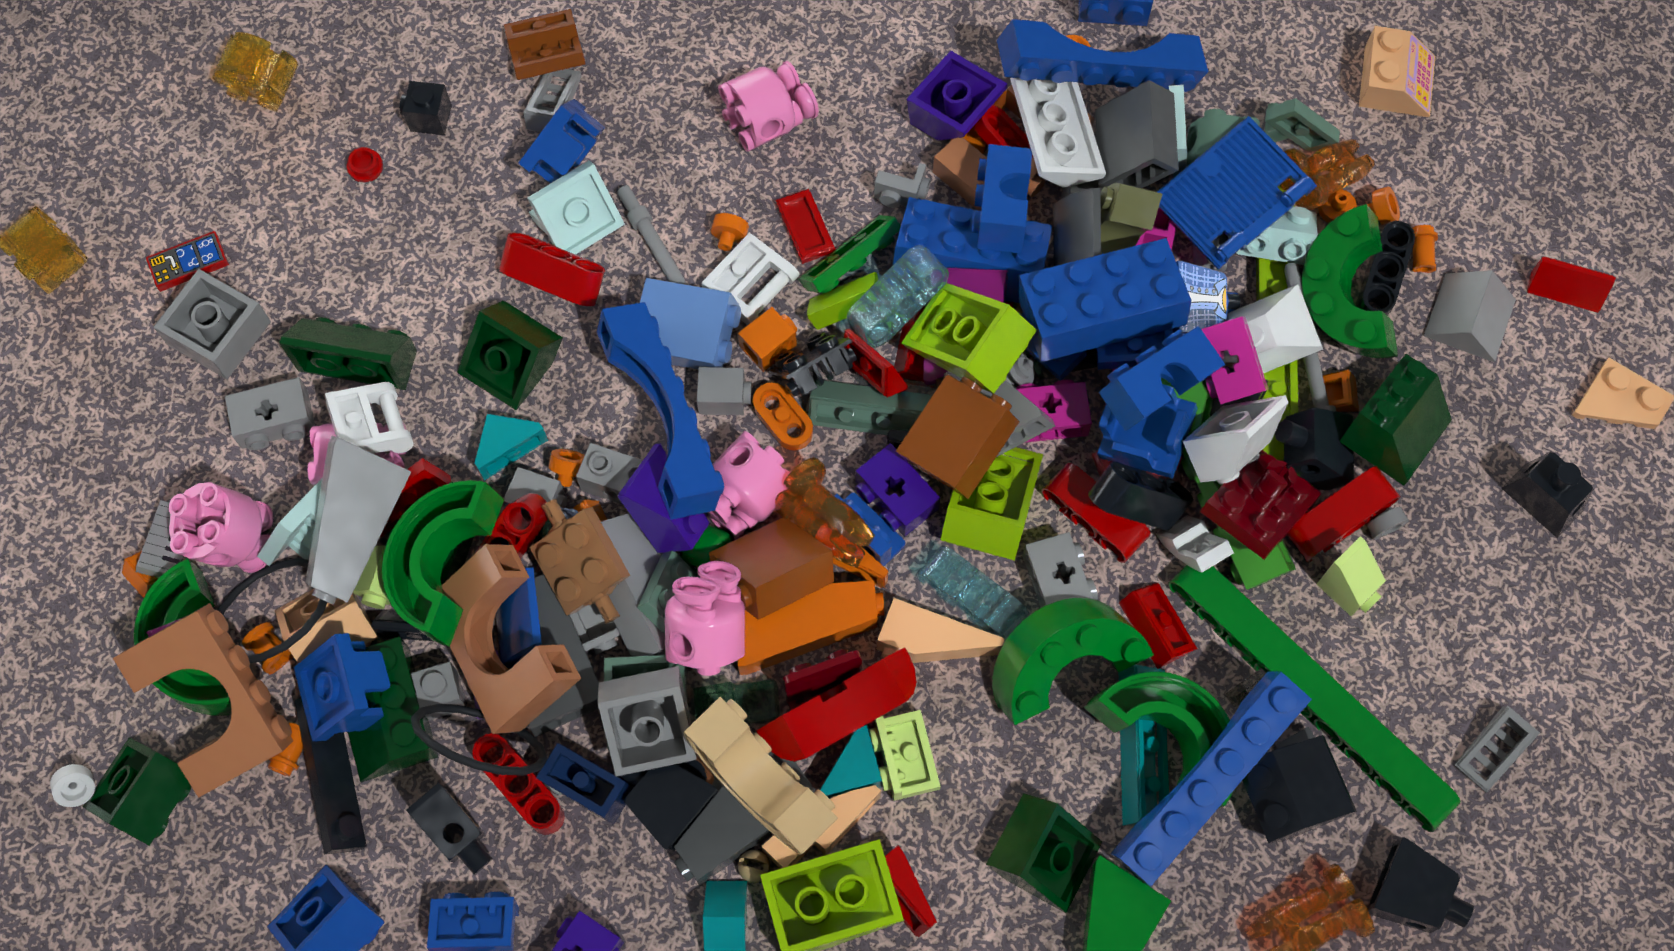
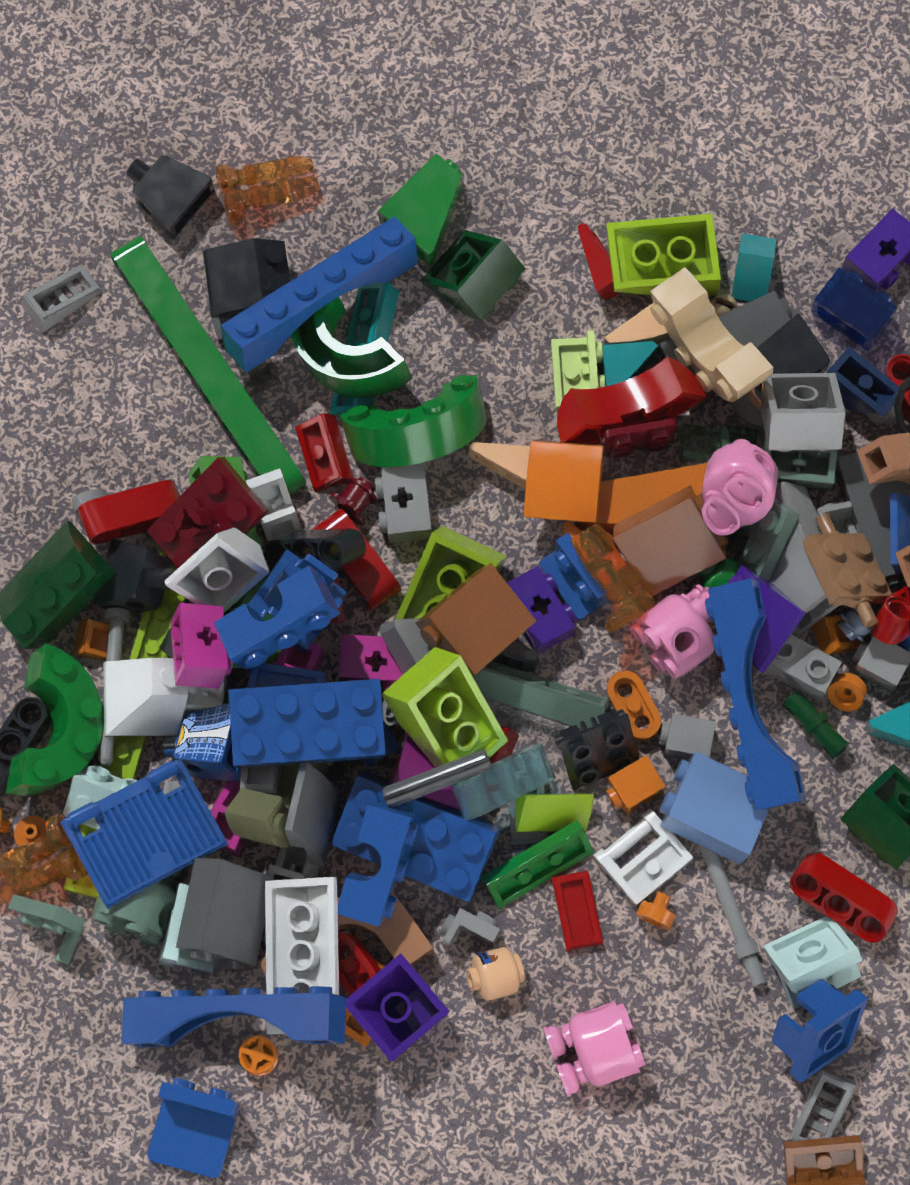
camera: 165 degrees left, 5 degrees up
(595, 427) = (815, 724): none -> dark green pin
(603, 880) = (854, 308): none -> clear blue brick
(871, 153) = (495, 973): none -> light nougat head
(874, 367) = (536, 726): red slope -> none
(895, 608) = (563, 481): none -> orange slope
(963, 272) = (436, 778): none -> dark grey axle
(973, 592) = (487, 499): clear light blue beam -> none
(1113, 573) = (355, 498): none -> dark red brick
(1354, 579) = (142, 452): yellowish green slope -> none

